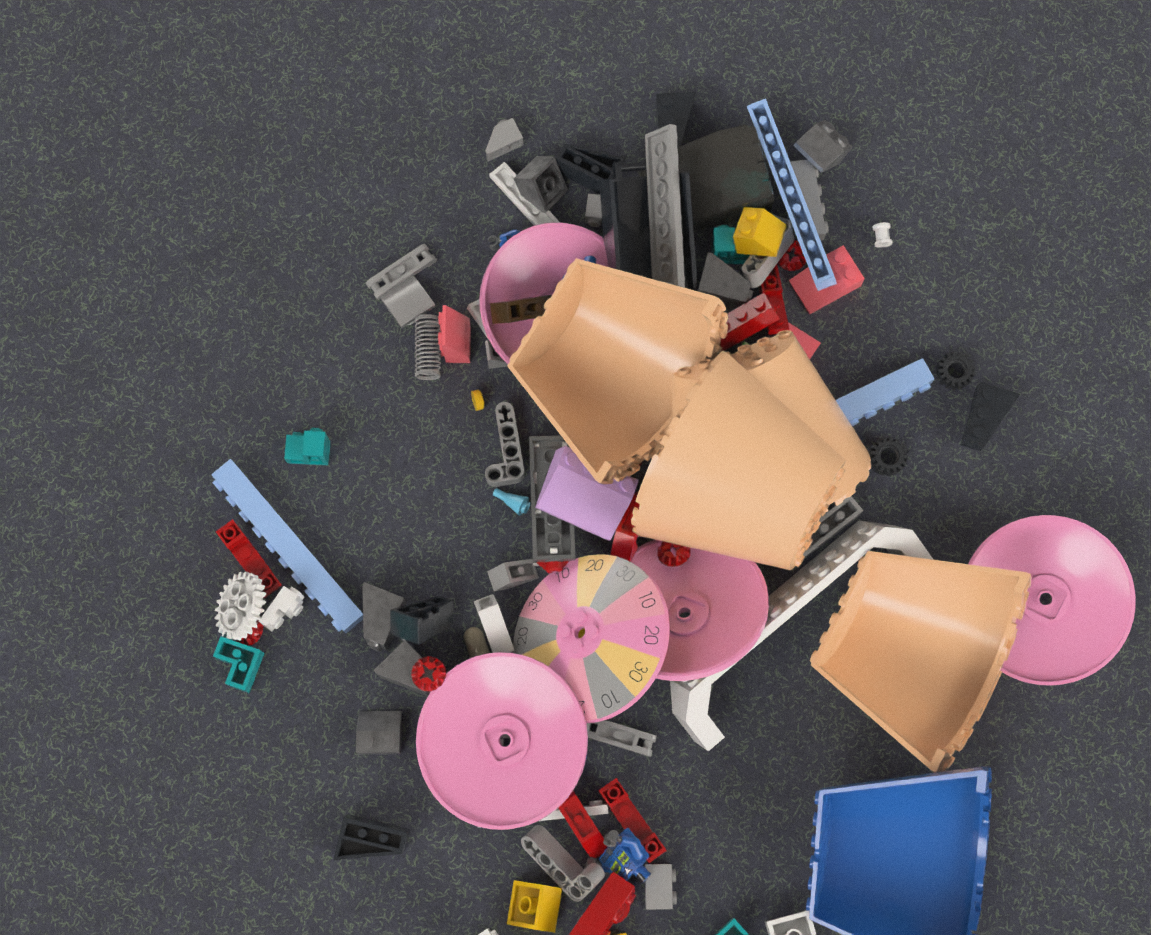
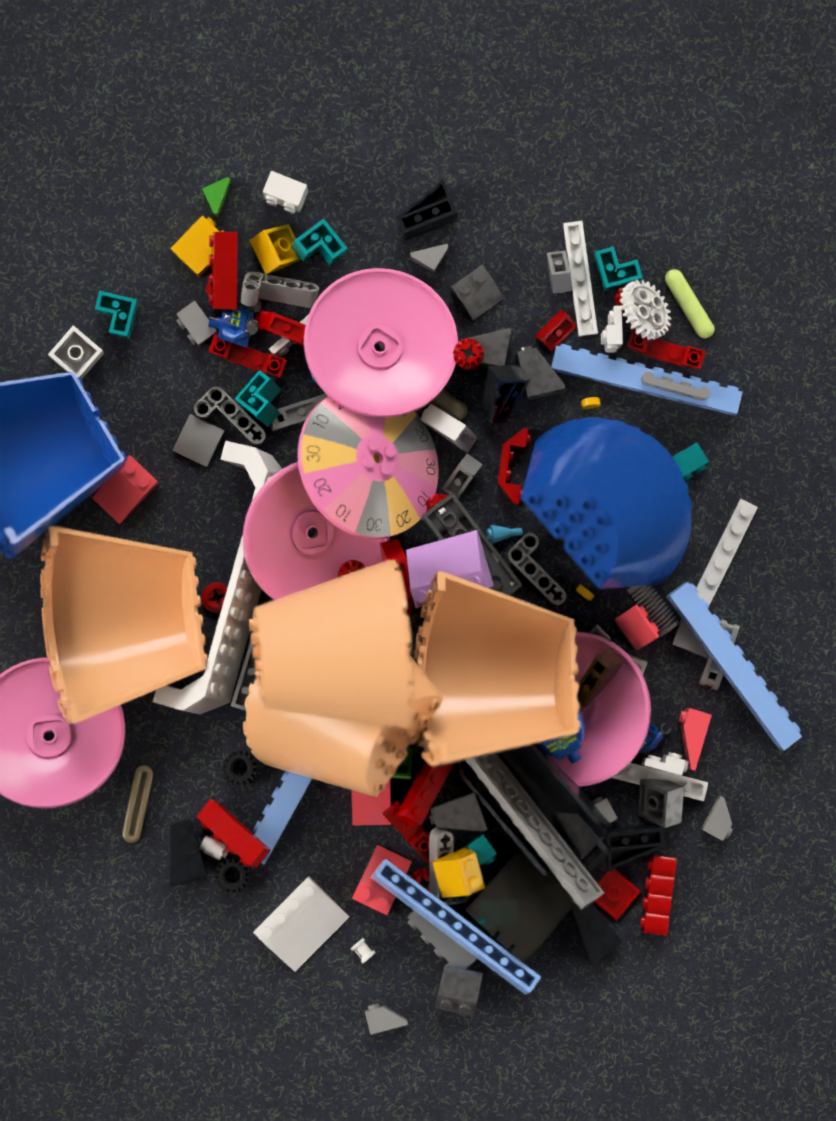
camera: 140 degrees right, 10 degrees up
(197, 588) = (689, 303): none -> yellowish green piece
(260, 511) = (667, 384): none -> light grey plate
(276, 679) = (580, 278): none -> white plate
(290, 698) = (559, 272): none -> light grey slope
(333, 648) = (556, 330): none -> red slope
(334, 352) = (725, 550): none -> white plate
(351, 560) = (589, 403): none -> yellow tile
(396, 251) = (734, 666): none -> light blue brick
(398, 795) = (430, 257): none -> light grey slope
(400, 456) = (611, 500): none -> blue cone
(439, 571) = (519, 440): none -> red slope
(470, 219) = (693, 732): none -> coral slope
(485, 881) = (320, 239): none -> teal brick
(512, 208) = (670, 763): none -> white plate
(596, 114) = (659, 895): none -> red brick
(630, 139) = (617, 893): none -> red tile
(651, 774) = (257, 398): none -> teal brick
(684, 771) = (233, 418): none -> light grey beam
(730, 775) = (198, 440): none -> light grey slope
(817, 615) = (209, 592): none -> red gear
(826, 771) = (125, 490): none -> coral slope
(901, 168) = (383, 1019): none -> light grey slope
(922, 292) = (301, 924): none -> white slope
(933, 401) = (233, 833): none -> red brick
(955, 404) = (214, 848): none -> white brick
(1001, 486) = (137, 804): none -> dark tan piece

